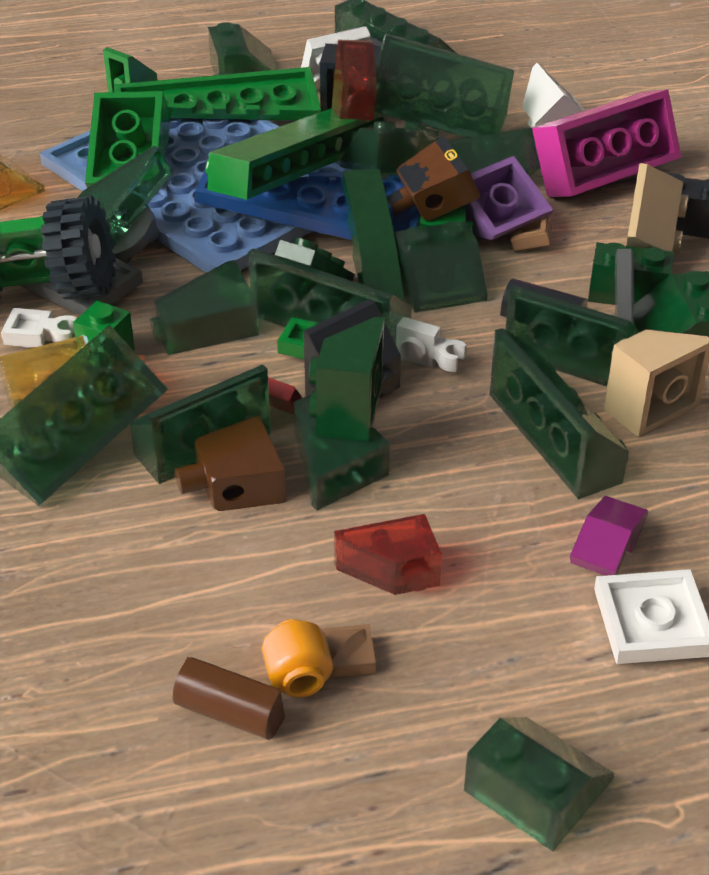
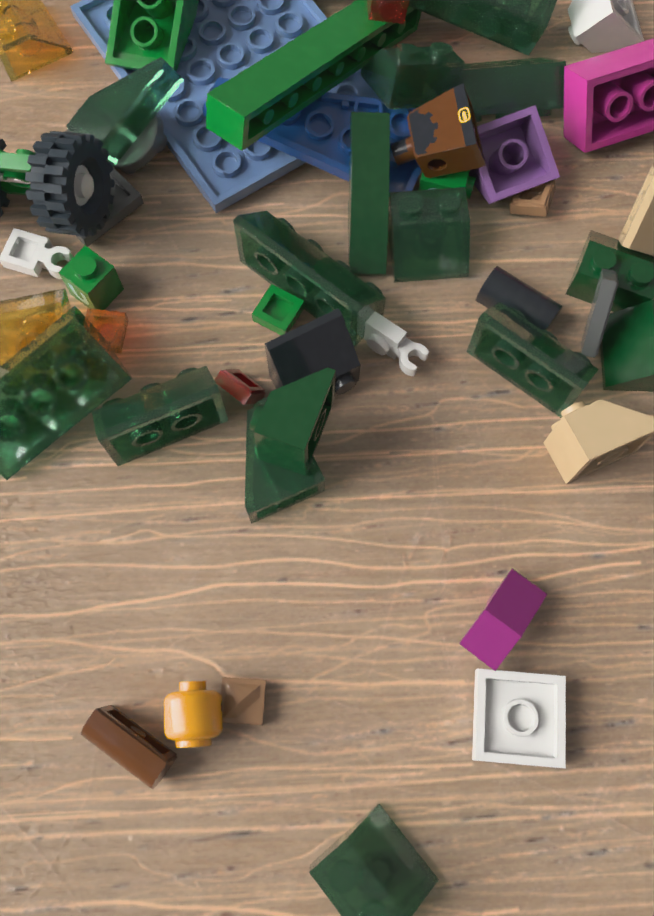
camera: 10 degrees right, 30 degrees up
(206, 311) = (193, 259): clear green slope -> none
(236, 468) = (182, 471): reddish brown torso -> none
(310, 255) = (302, 228): dark green plate -> none
(390, 554) = (303, 605): clear red slope -> none
(555, 418) = (491, 462): clear green slope -> none

